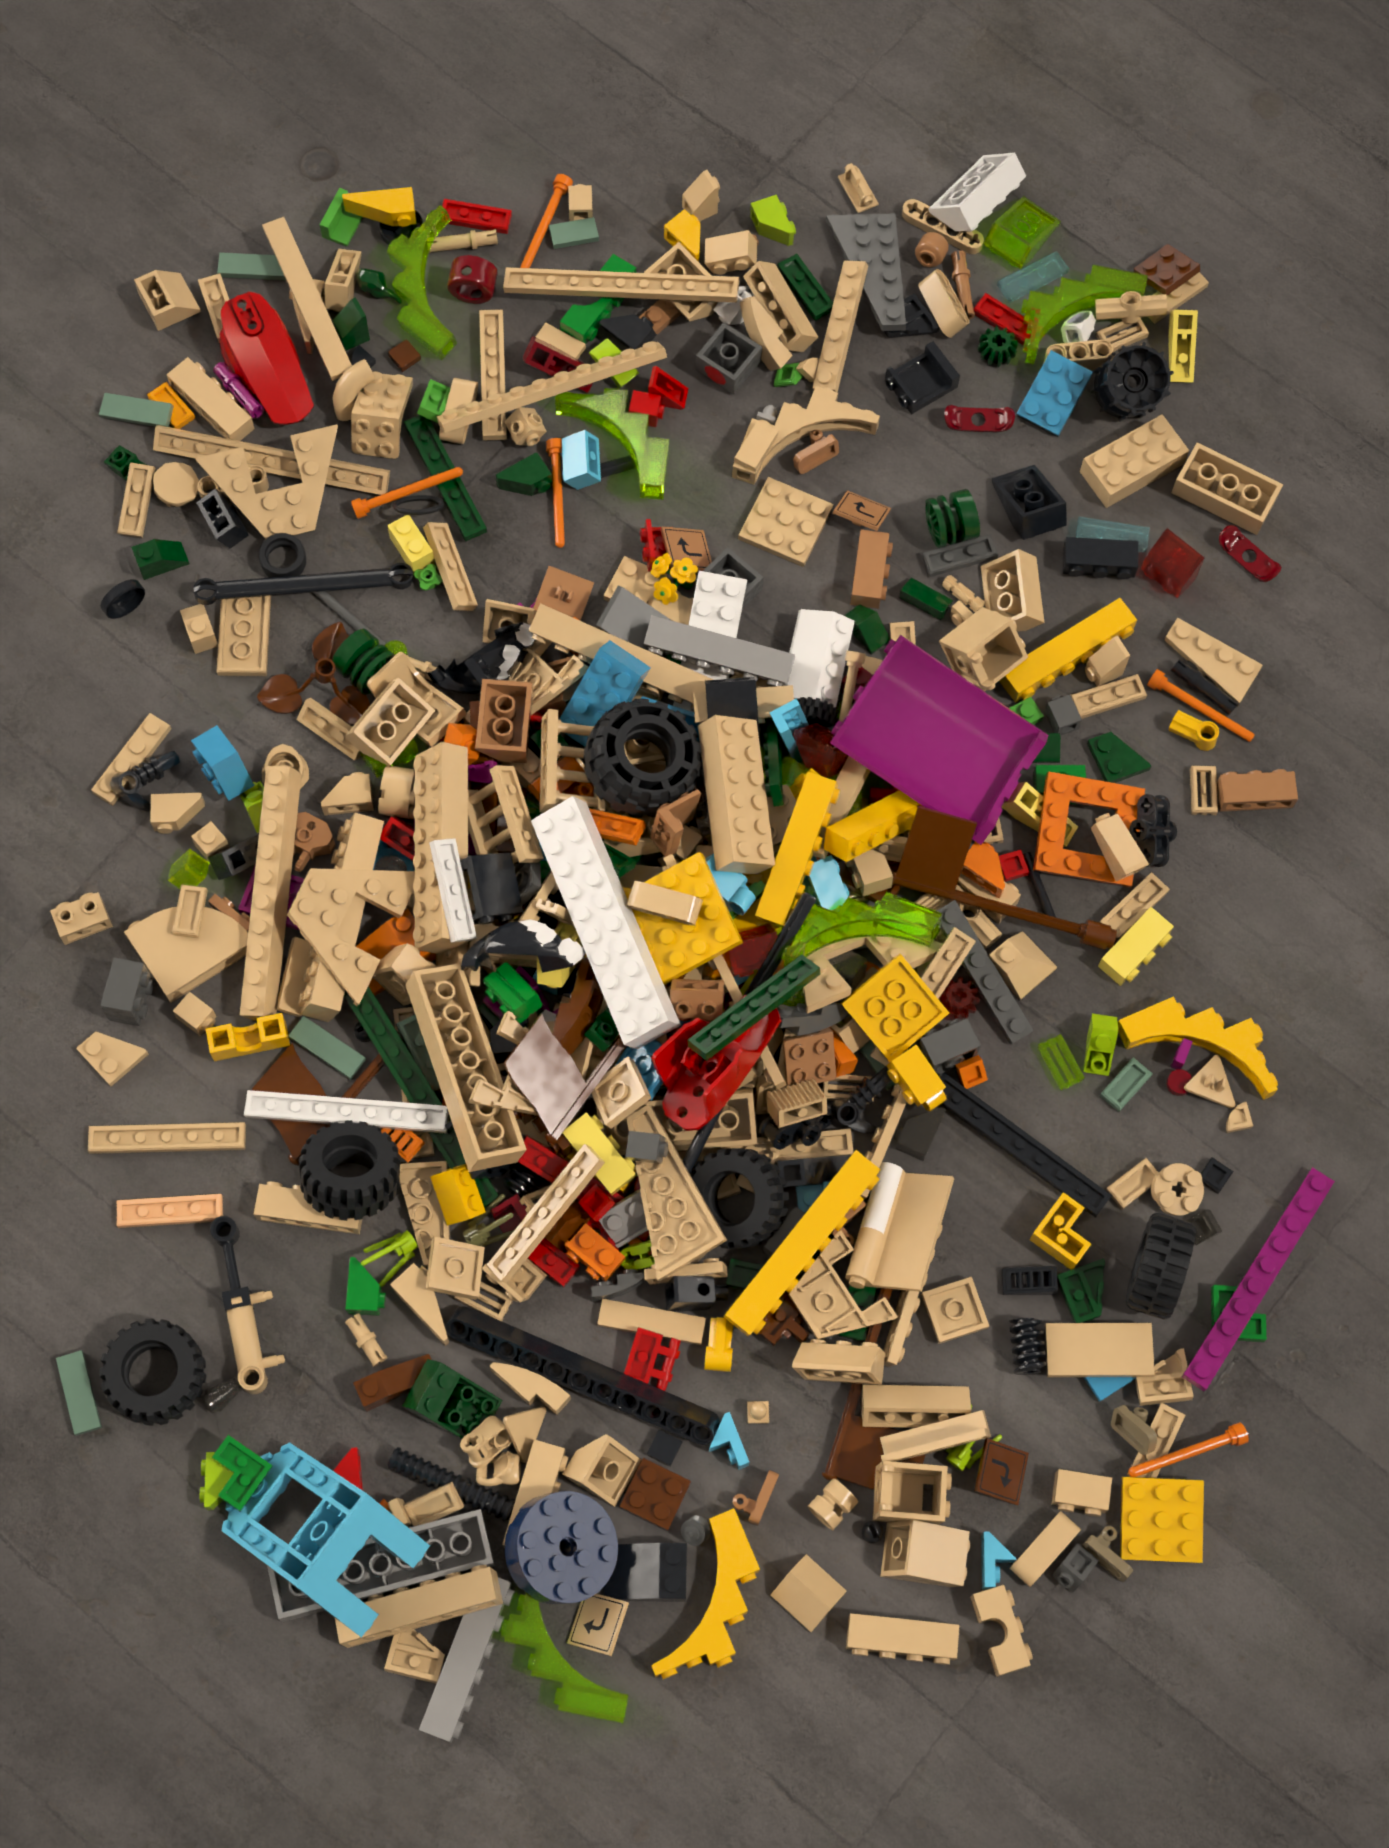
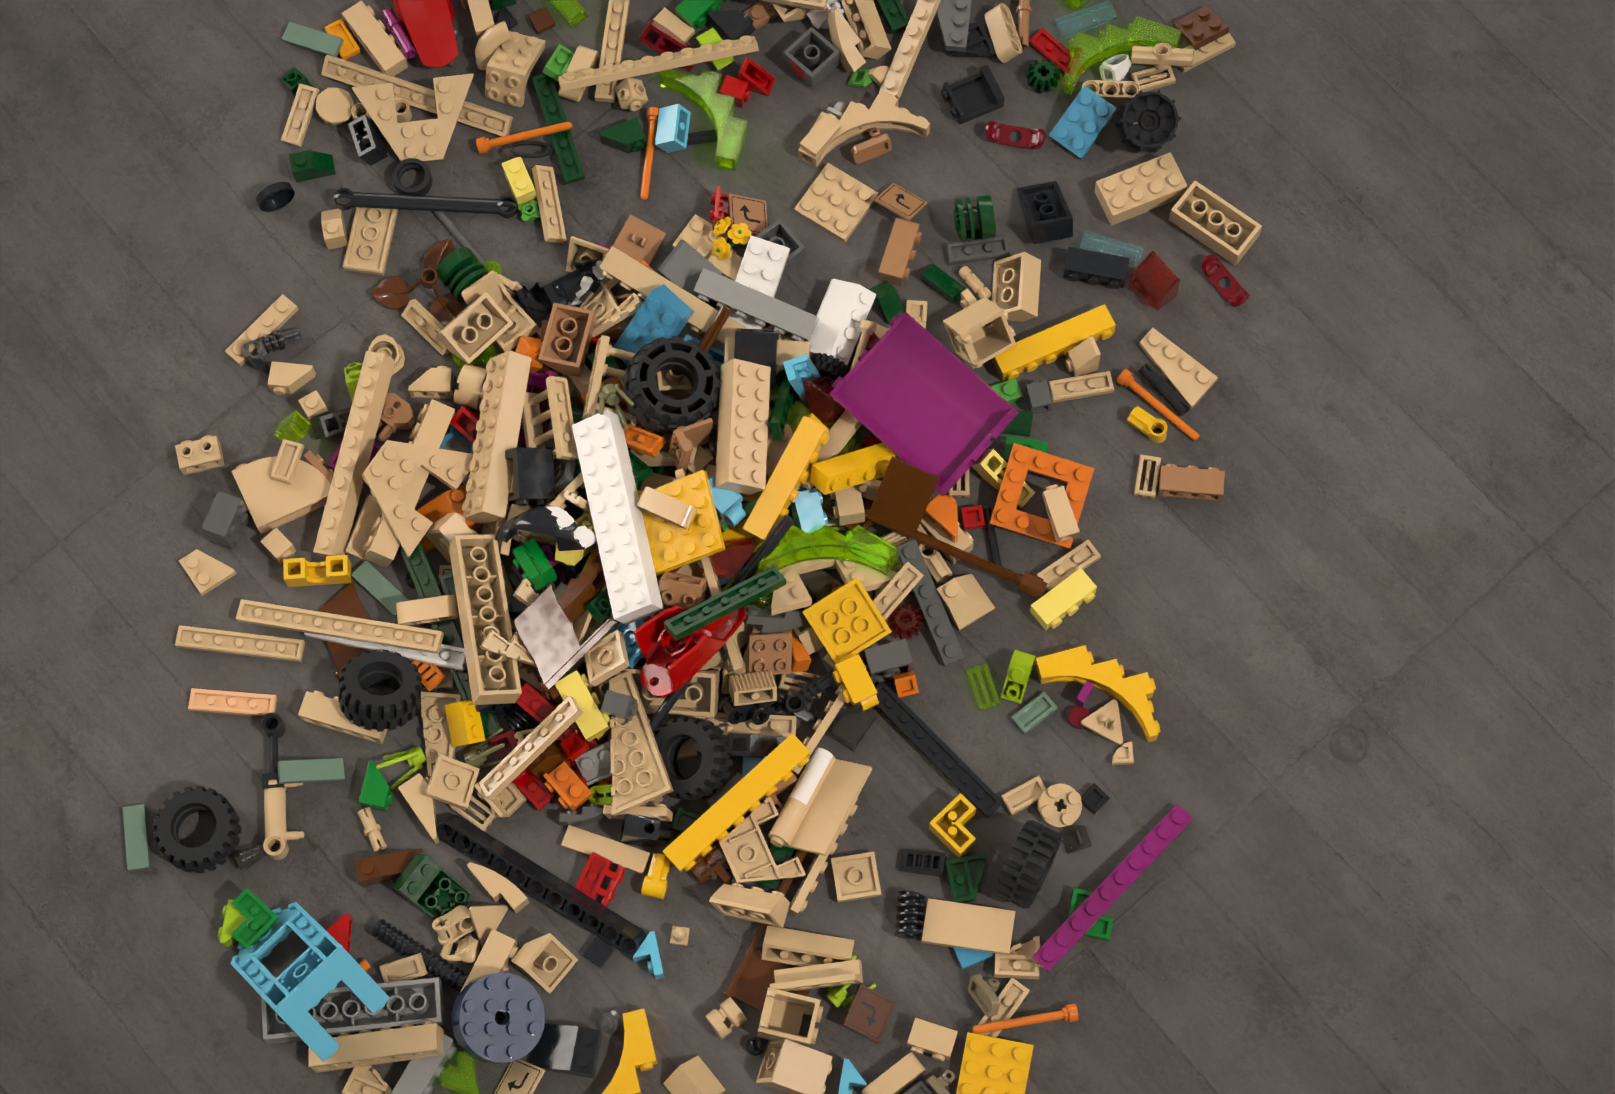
camera: 15 degrees right, 0 degrees up
(221, 763) = (332, 344): dark azure brick -> none
(280, 1279) = (311, 771): none -> sand green tile
(287, 1100) = (340, 626): none -> tan plate
(391, 1065) = (427, 610): none -> tan beam
(397, 1509) = (374, 970): tan tile -> none
(453, 890) = (498, 473): white tile -> none
(572, 778) = (612, 394): none -> olive plant
(655, 1494) = (584, 988): reddish brown plate -> none
(678, 681) = (714, 328): none -> reddish brown axle
(753, 1507) = (664, 1012): medium nougat piece -> none
(1115, 758) = (1078, 440): dark green wing -> none
(1153, 819) = (1098, 513): black axle -> none
(1182, 344) = (1201, 95): light yellow slope -> none

